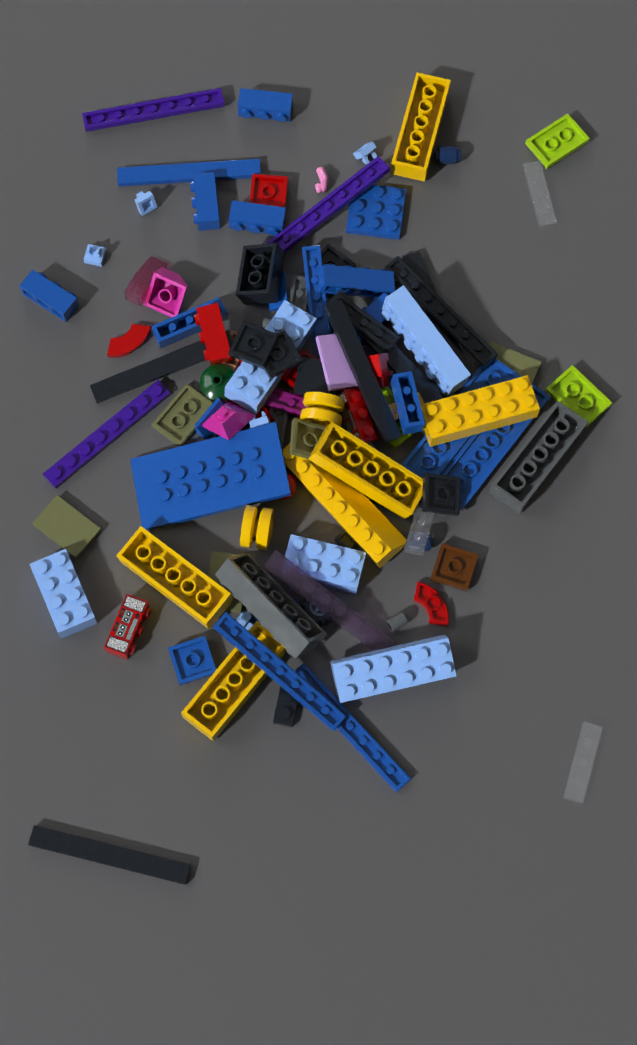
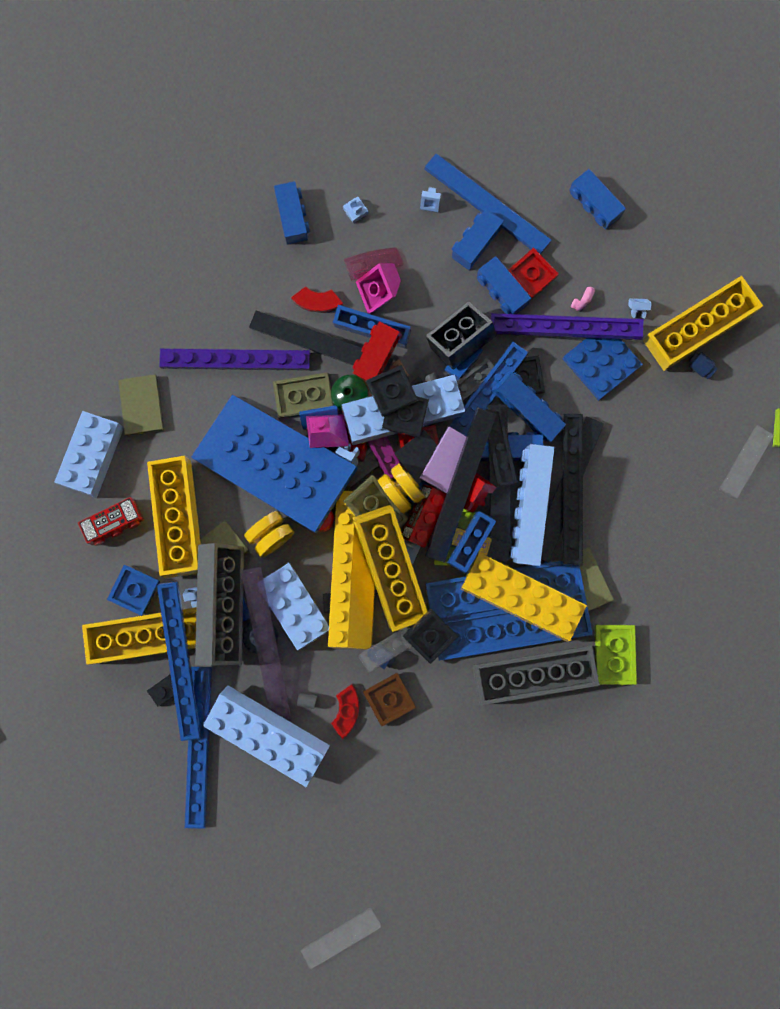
camera: 45 degrees right, 10 degrees up
(153, 109) = (507, 129): dark purple plate -> none

